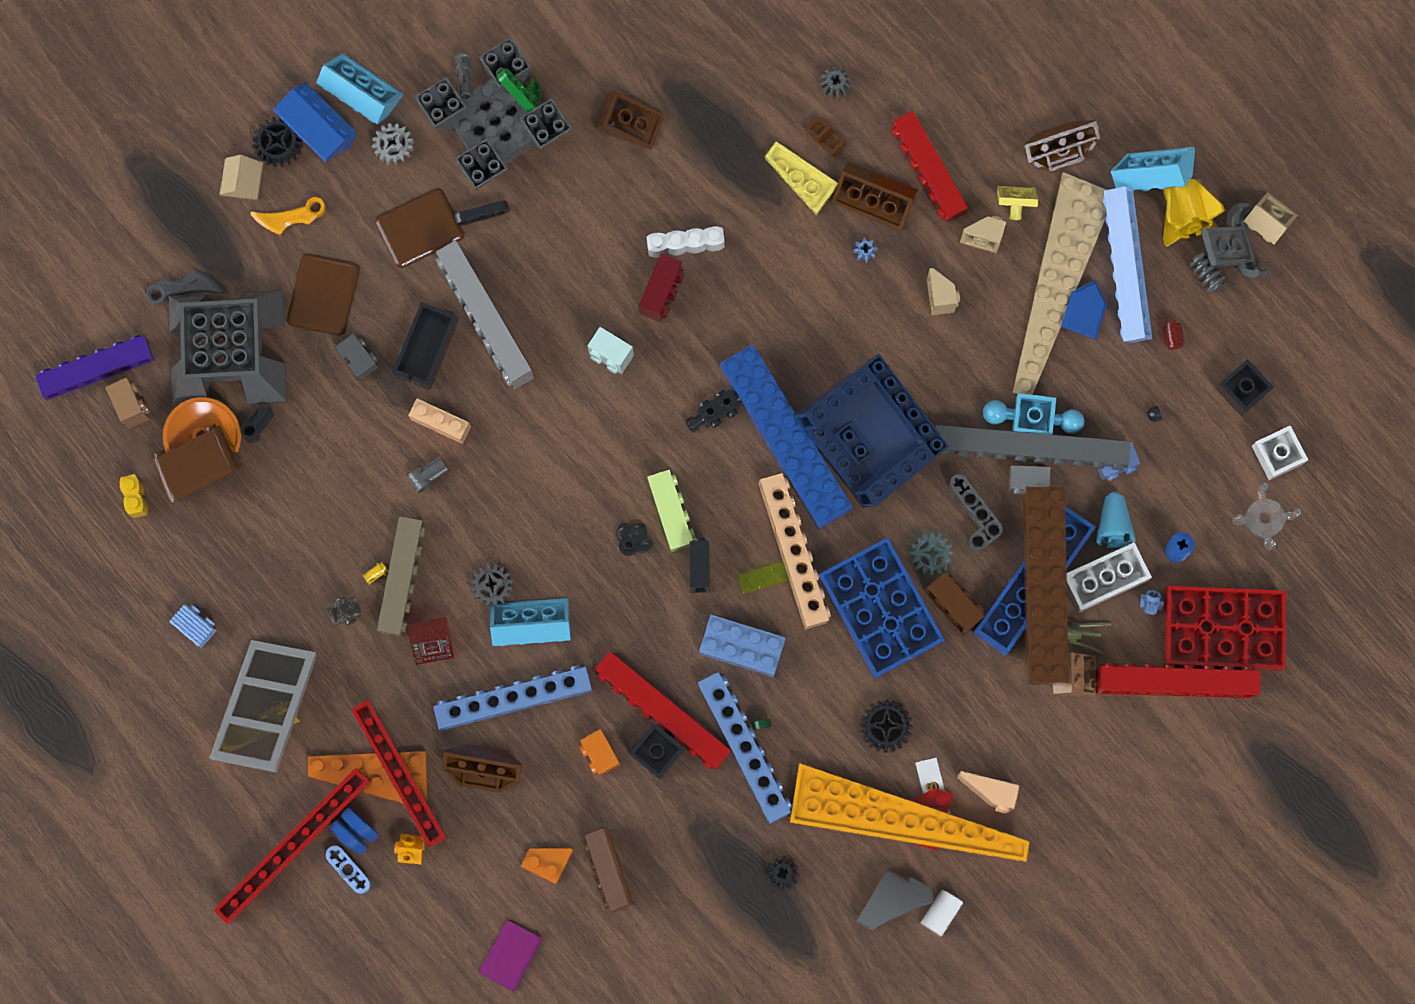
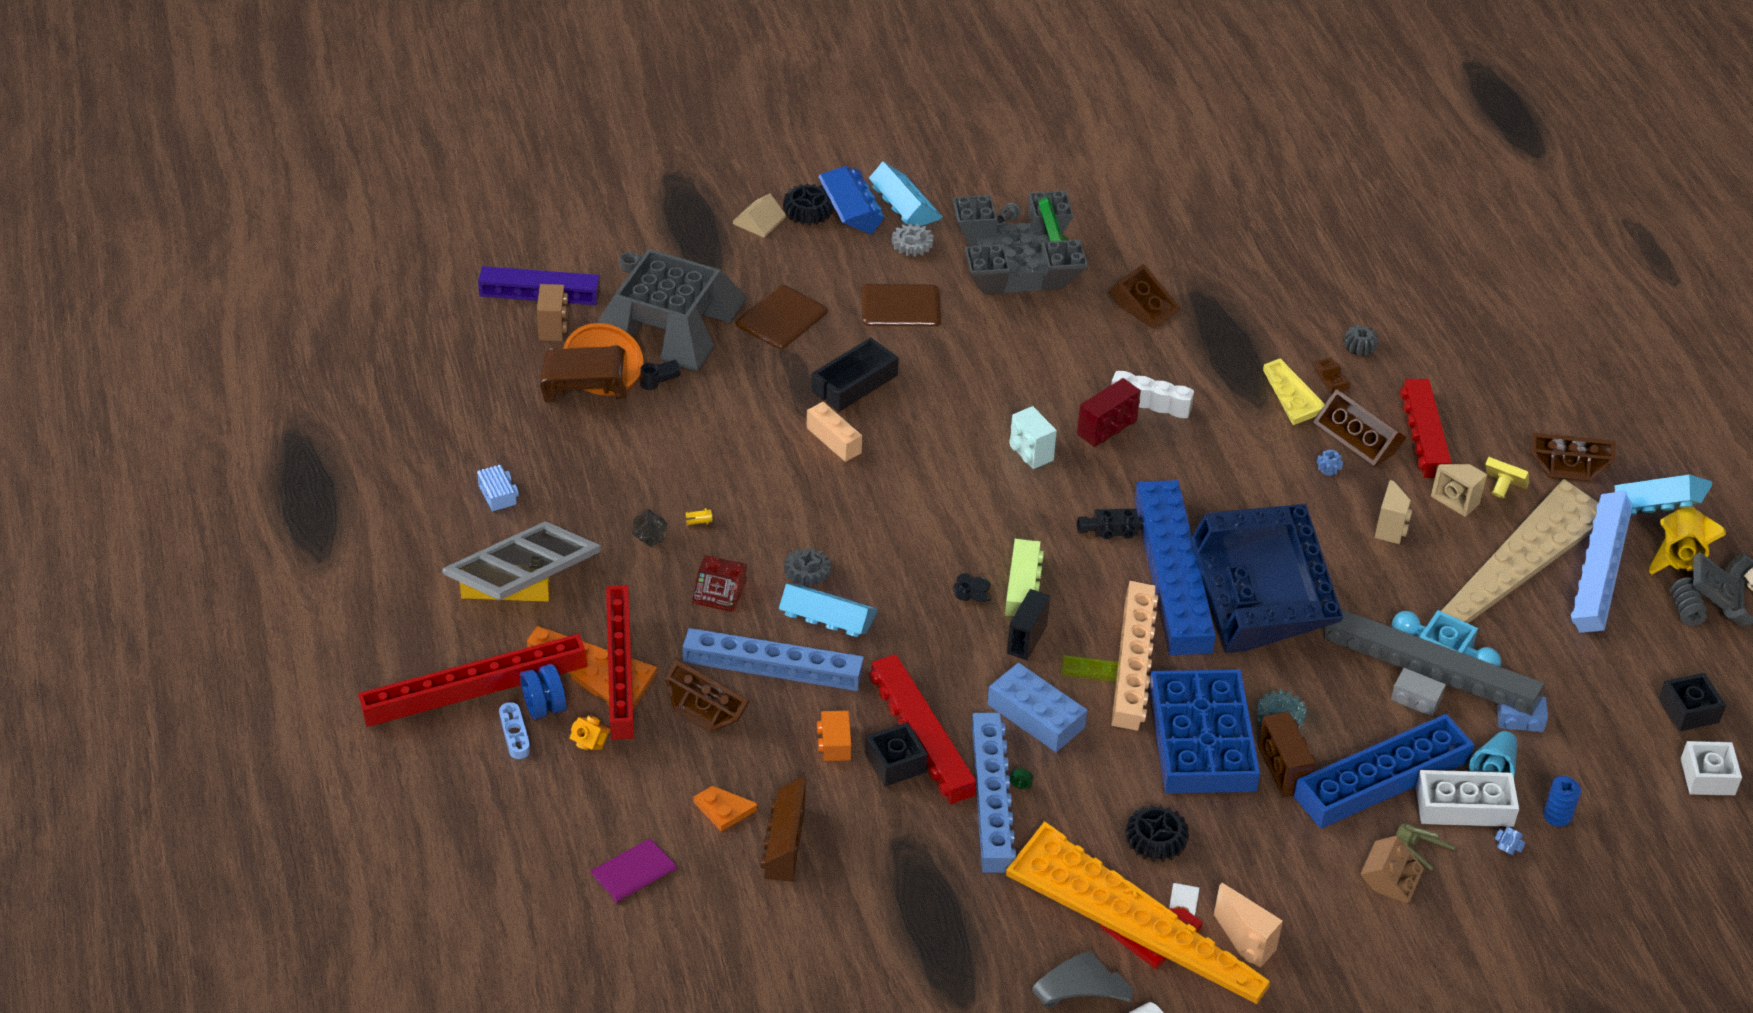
camera: 20 degrees right, 35 degrees down
(133, 491) = (509, 379): yellow brick -> none
(280, 221) = (773, 255): light orange piece -> none
(360, 361) = (785, 361): dark grey brick -> none
(401, 576) = (721, 526): dark tan brick -> none
(423, 477) = (792, 466): dark grey piece -> none
(481, 213) = (952, 304): black beam -> none
(481, 310) = (924, 372): light grey brick -> none
(788, 876) = (972, 913): black gear -> none
(972, 509) = (1352, 710): dark grey beam -> none
(1045, 586) = (1394, 766): reddish brown brick -> none
(1085, 311) = (1540, 587): blue tile -> none
(1154, 414) = (1580, 692): black hinge -> none
(1173, 335) = (1629, 637): clear red brick -> none
(1178, 681) = (1510, 915): red brick -> none
(1225, 628) = (1585, 892): red brick -> none
(1273, 510) = (1672, 812): clear plate -> none

